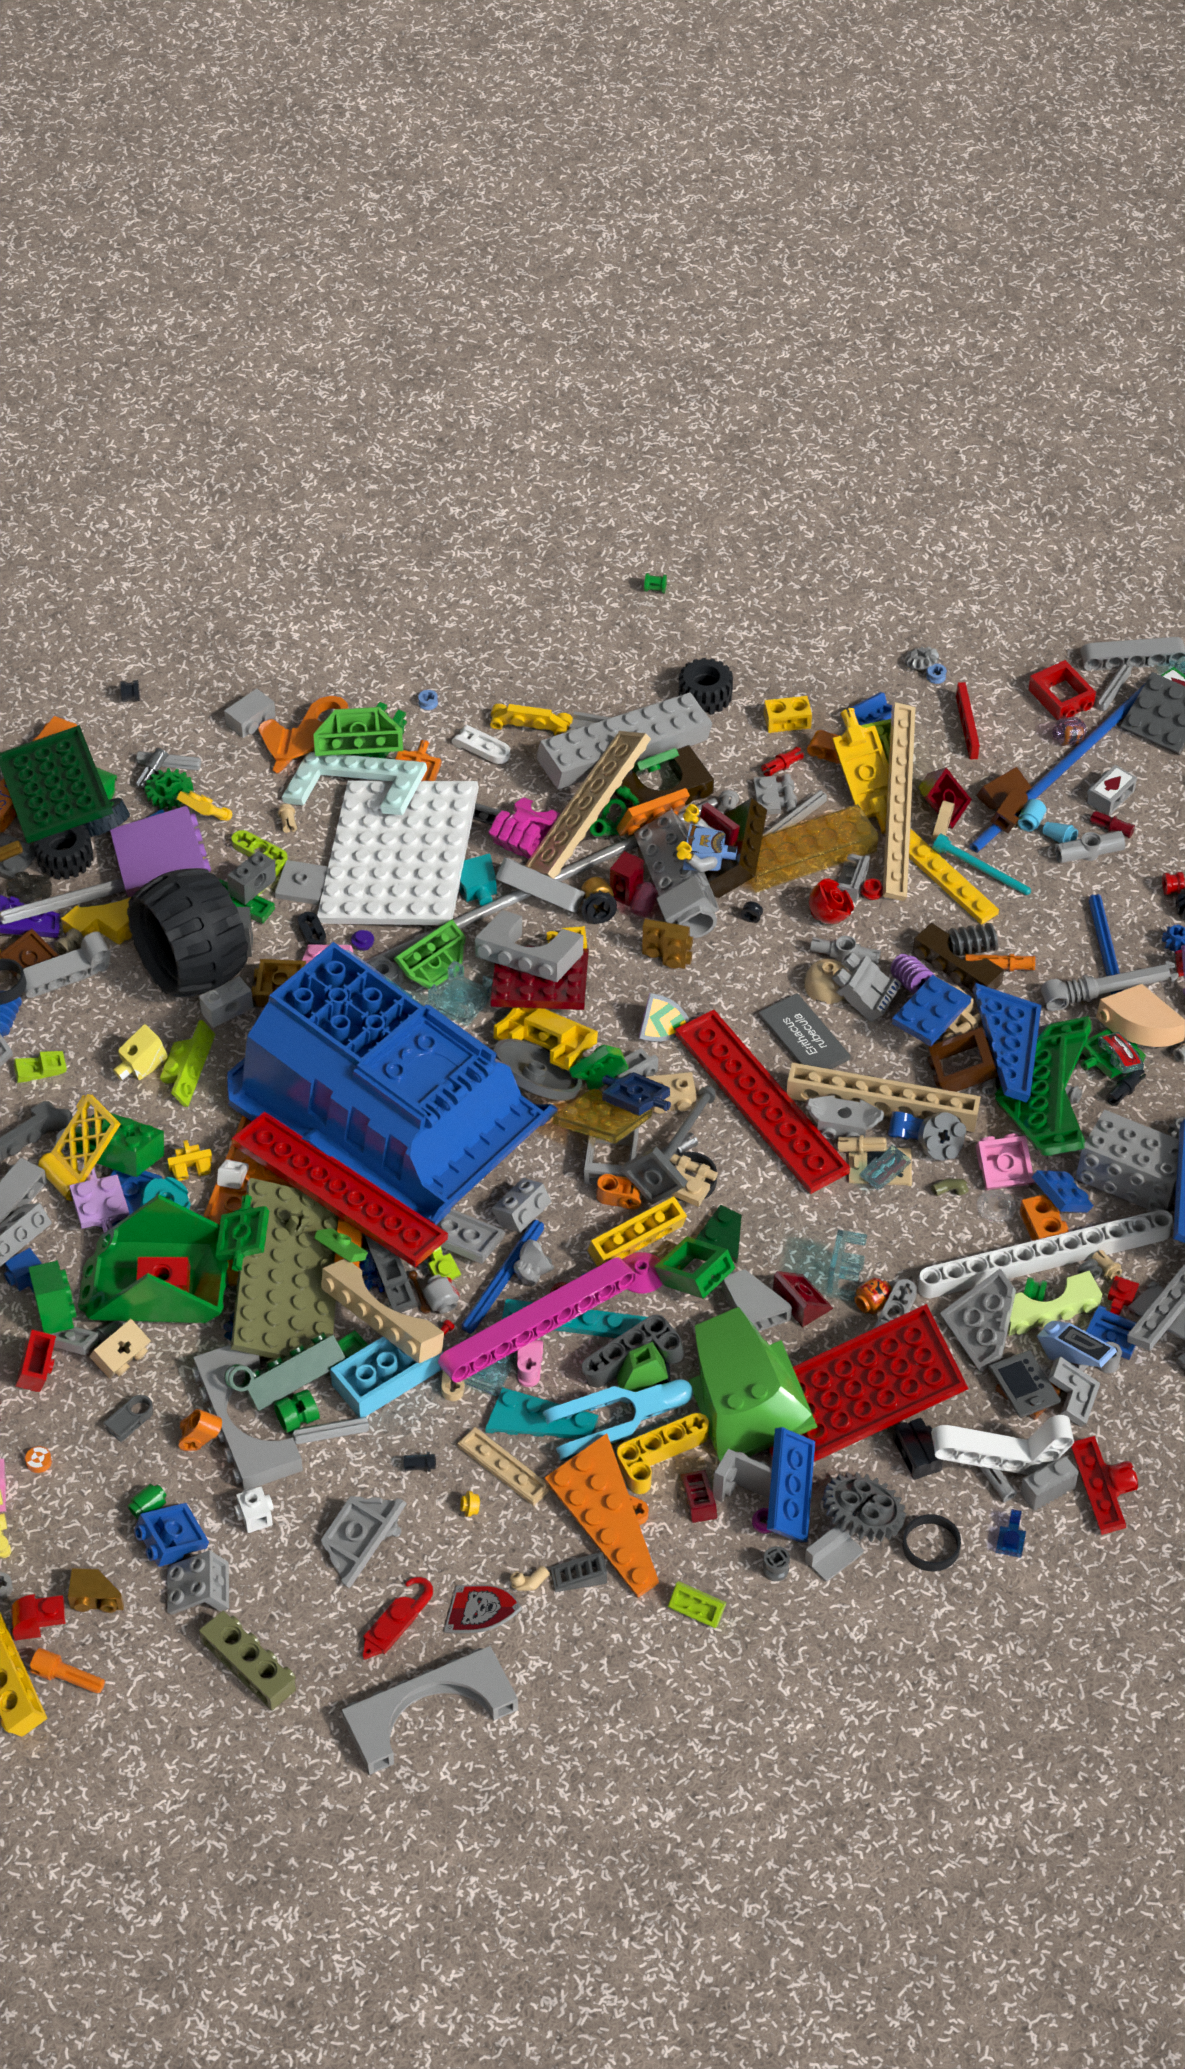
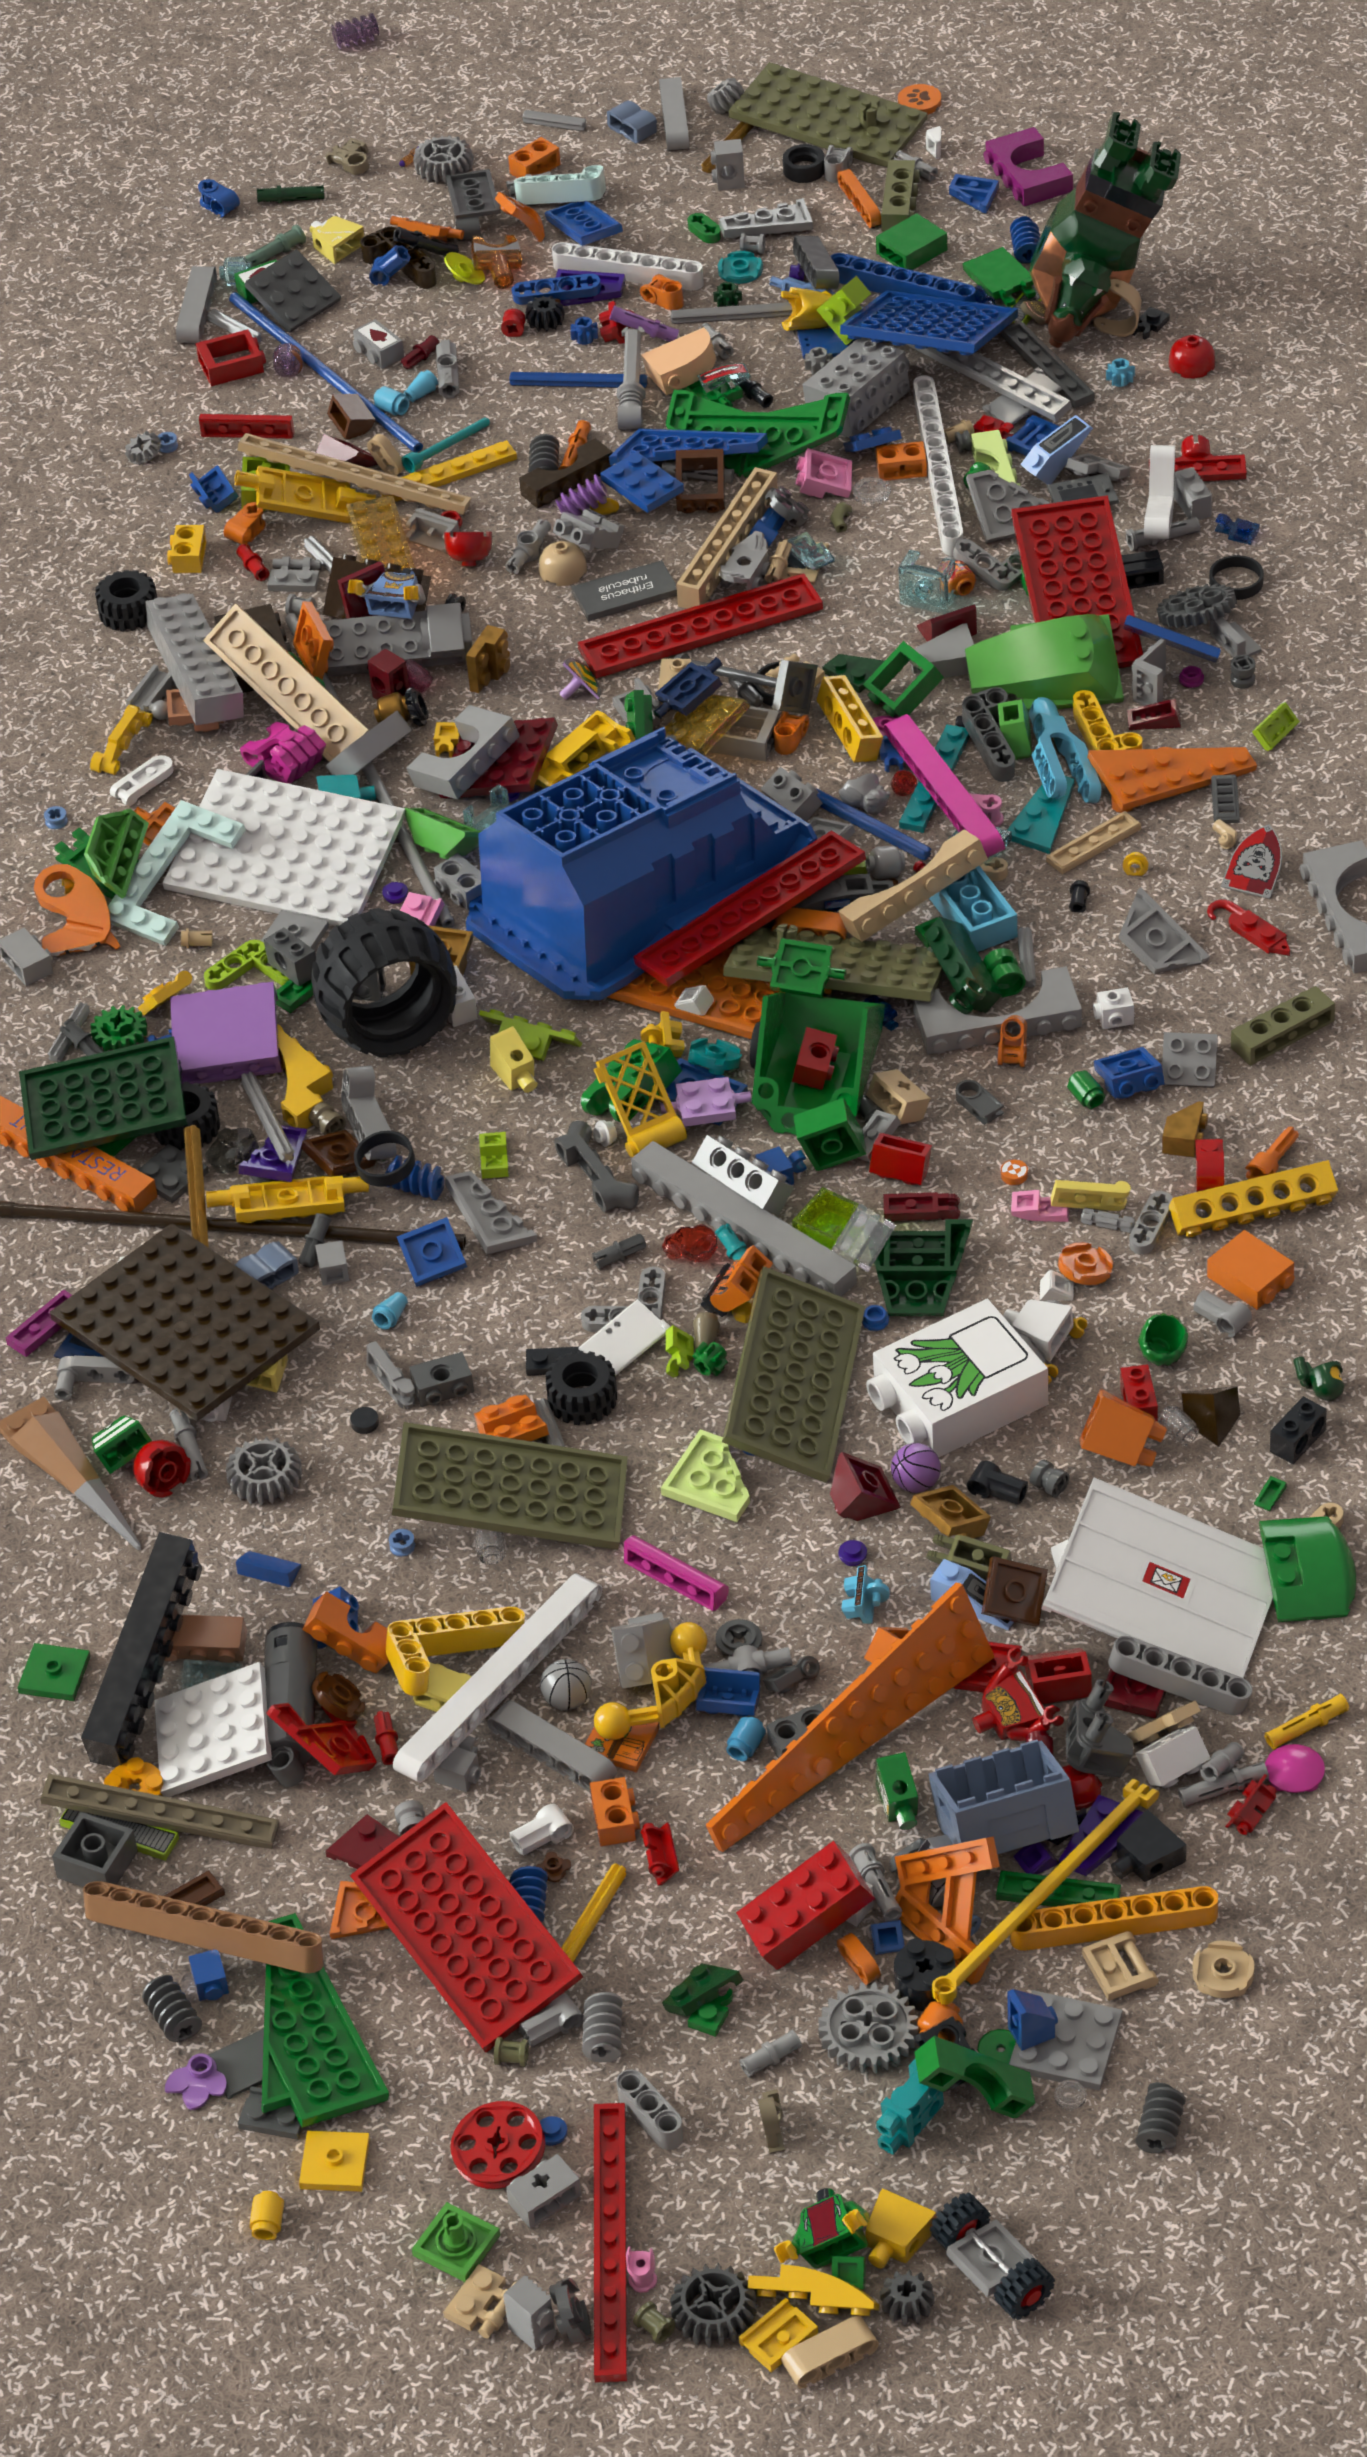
camera: 75 degrees left, 5 degrees down
(341, 1245) = (820, 913): bright green plate -> none
(1013, 803) = (387, 408): reddish brown leg -> none

